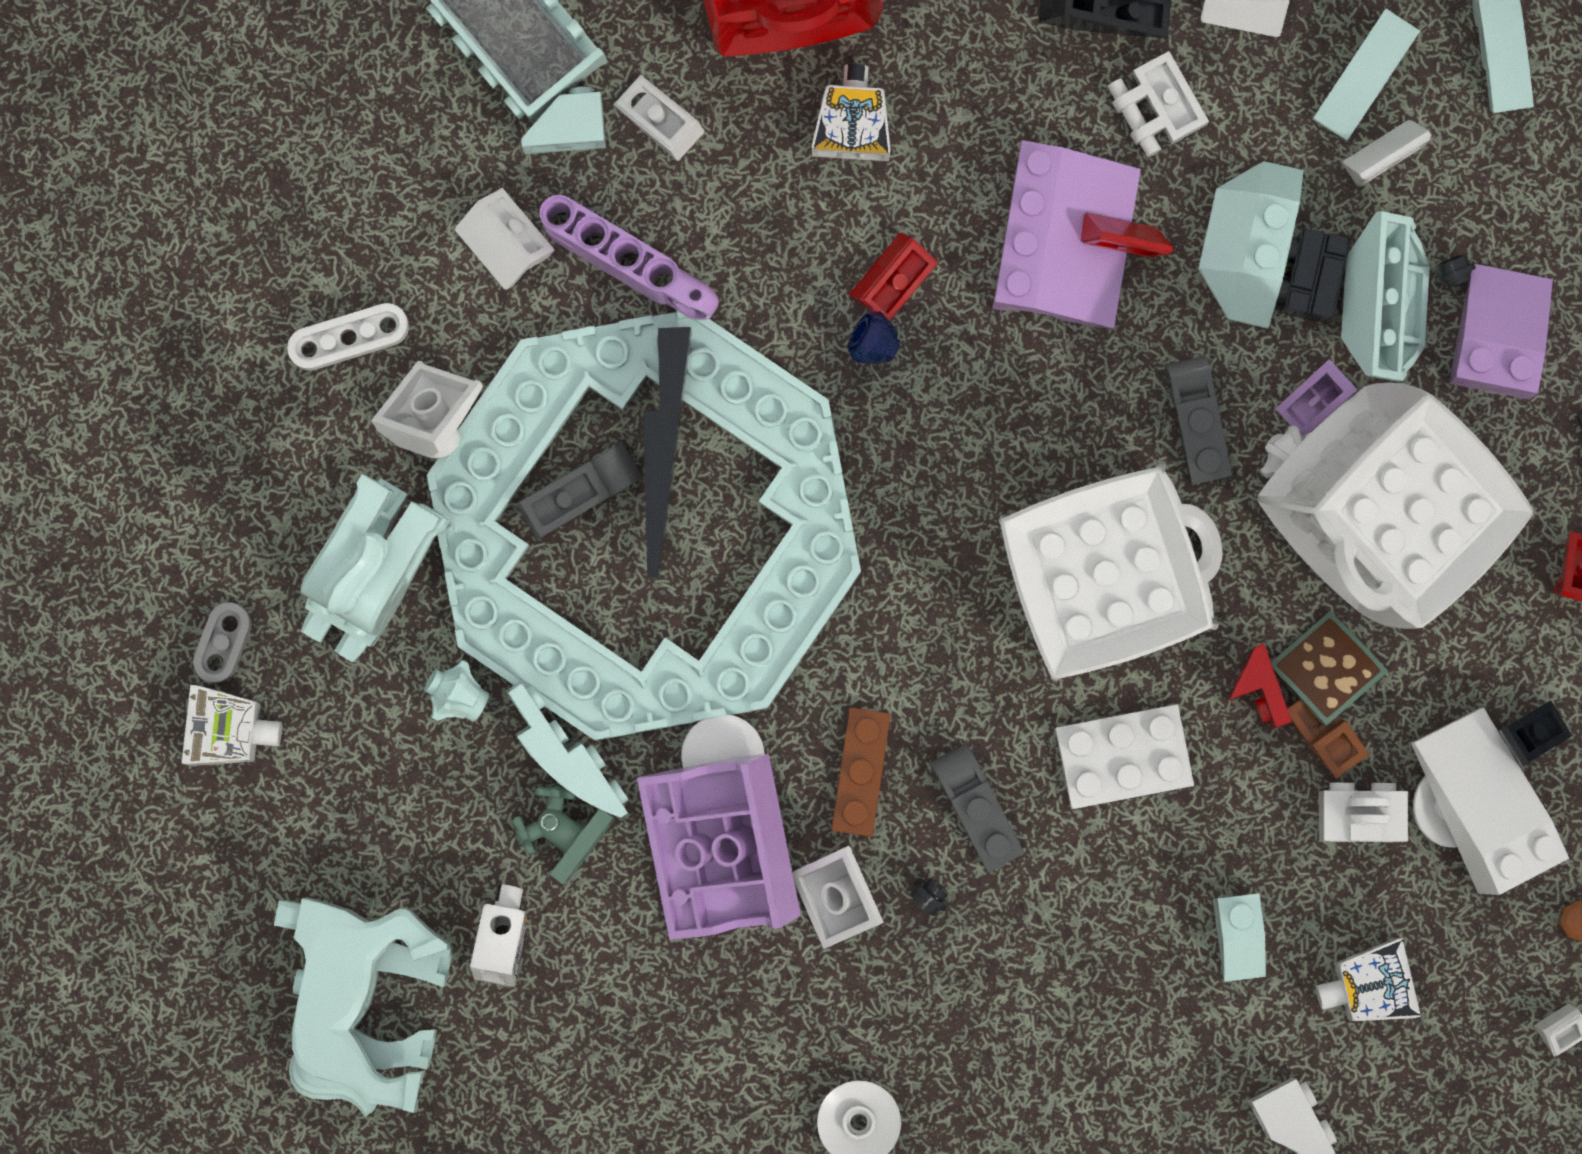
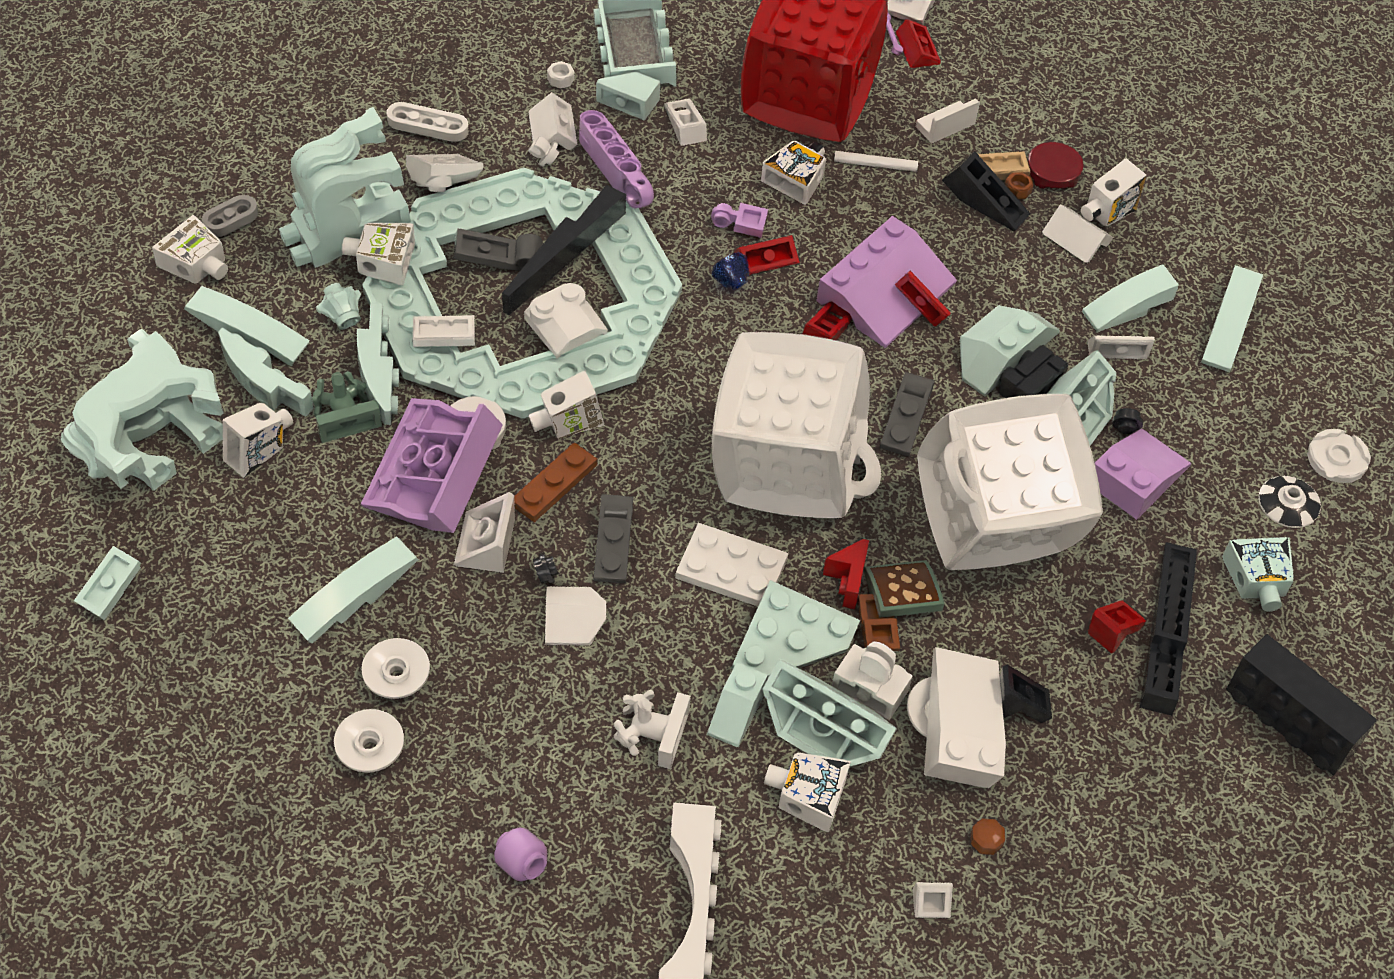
camera: 25 degrees right, 30 degrees down
(368, 791) = (253, 325): none -> light aqua slope
(419, 846) = (255, 373): none -> light aqua slope
(455, 593) = (383, 250): none -> white torso
(456, 145) = (560, 74): none -> white tile
(530, 291) = (544, 150): none -> white plate
(607, 661) = (443, 331): none -> white plate
(734, 551) = (564, 319): none -> white slope
(746, 1057) = (352, 588): none -> light aqua slope
(829, 661) = (569, 407): none -> white torso
(841, 238) = (747, 219): none -> lavender plate
(935, 32) = (876, 161): none -> white bar
(994, 929) = (573, 615): none -> white slope
(1031, 368) = (821, 328): none -> red slope
(1169, 98) = (997, 255): white plate -> none
(1170, 1015) = (653, 725): none -> white piece
(1242, 808) = (794, 631): none -> light aqua plate
(1346, 895) = (823, 718): none -> light aqua wedge

